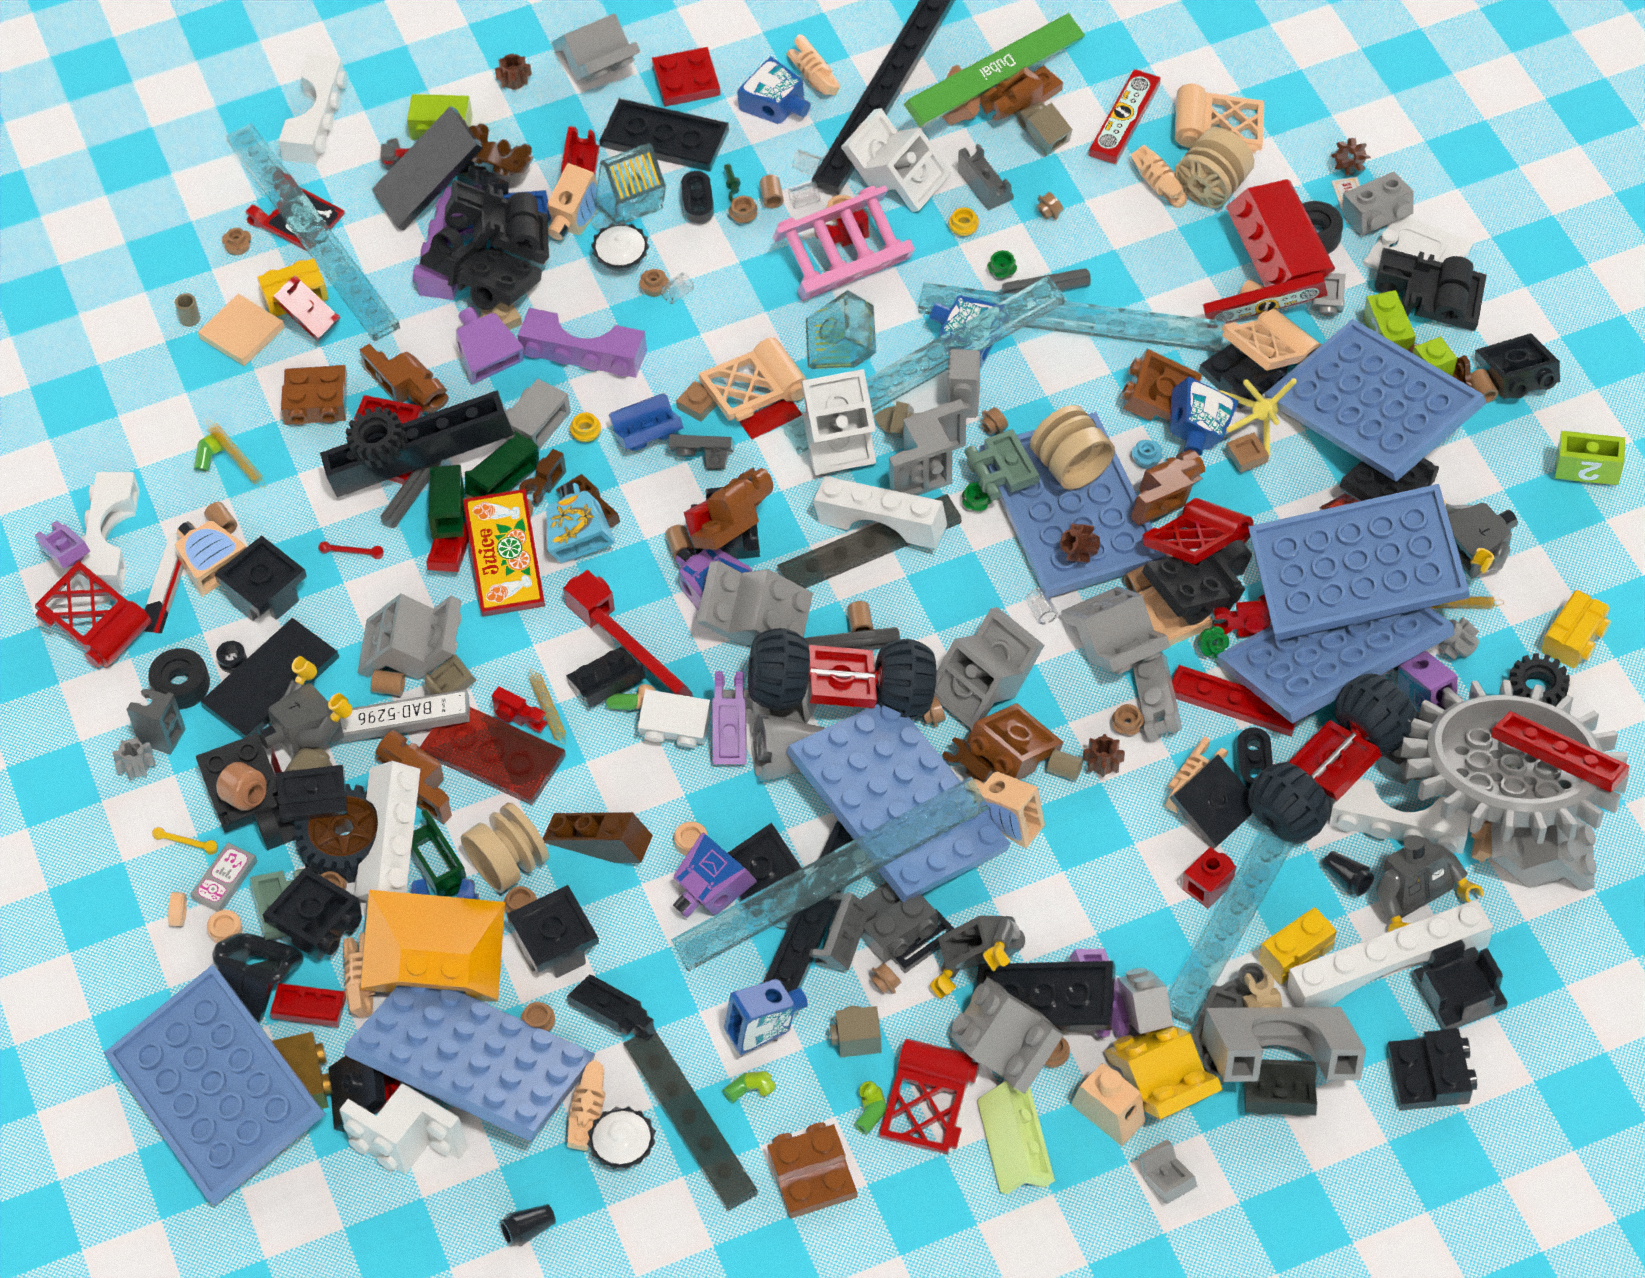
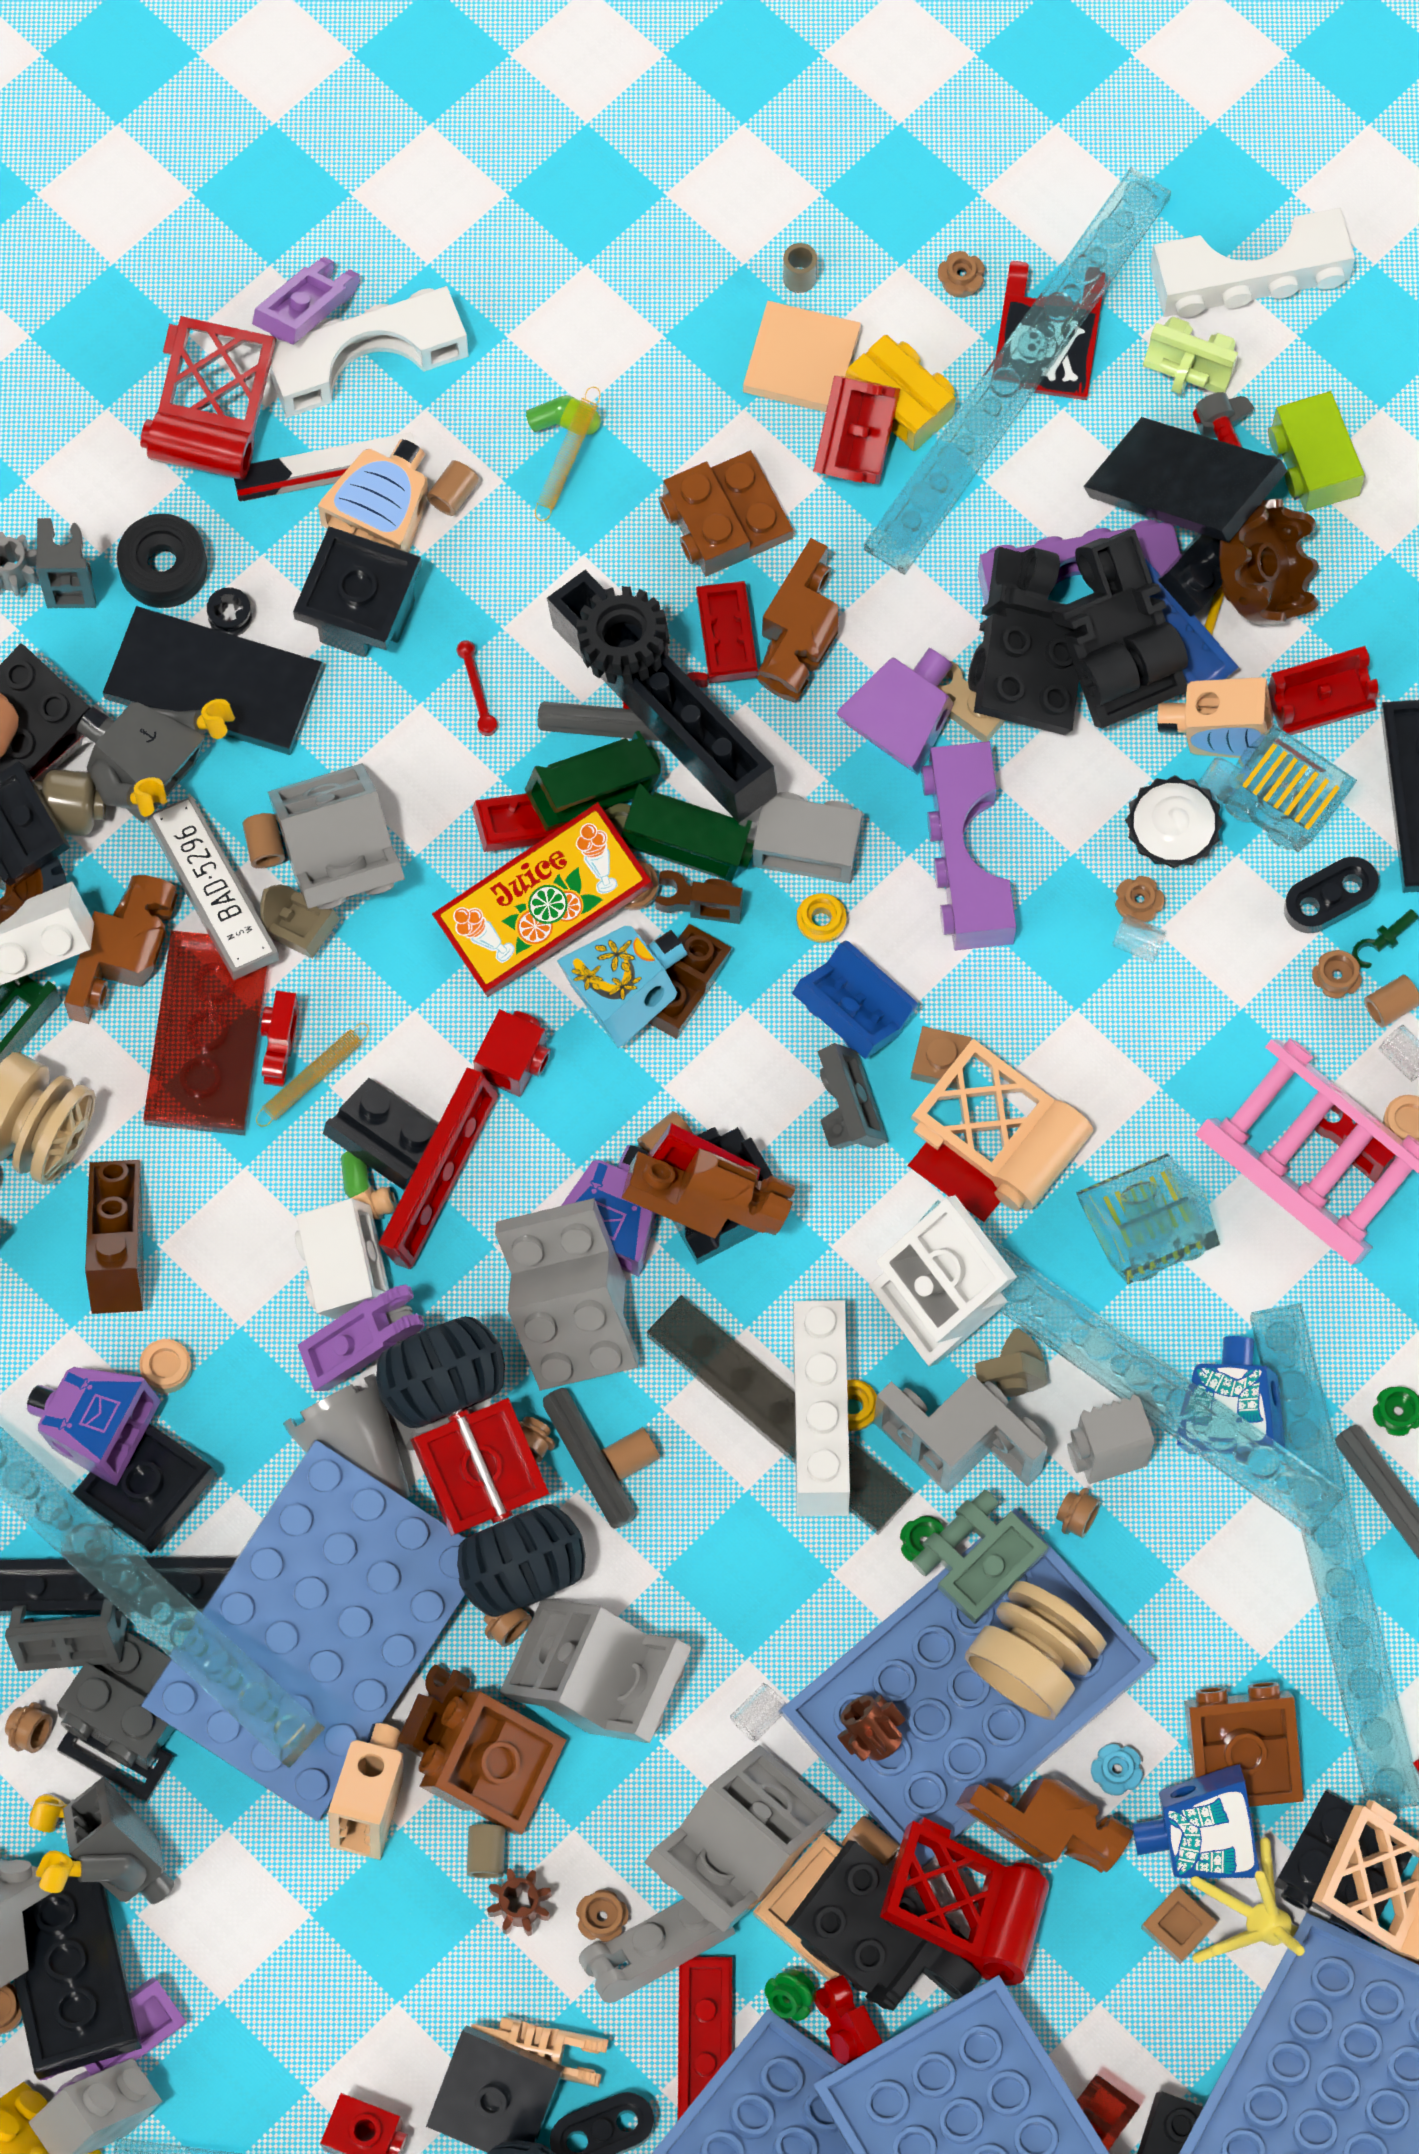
camera: 65 degrees right, 15 degrees up
(351, 154) = (1189, 358): none -> yellowish green hips

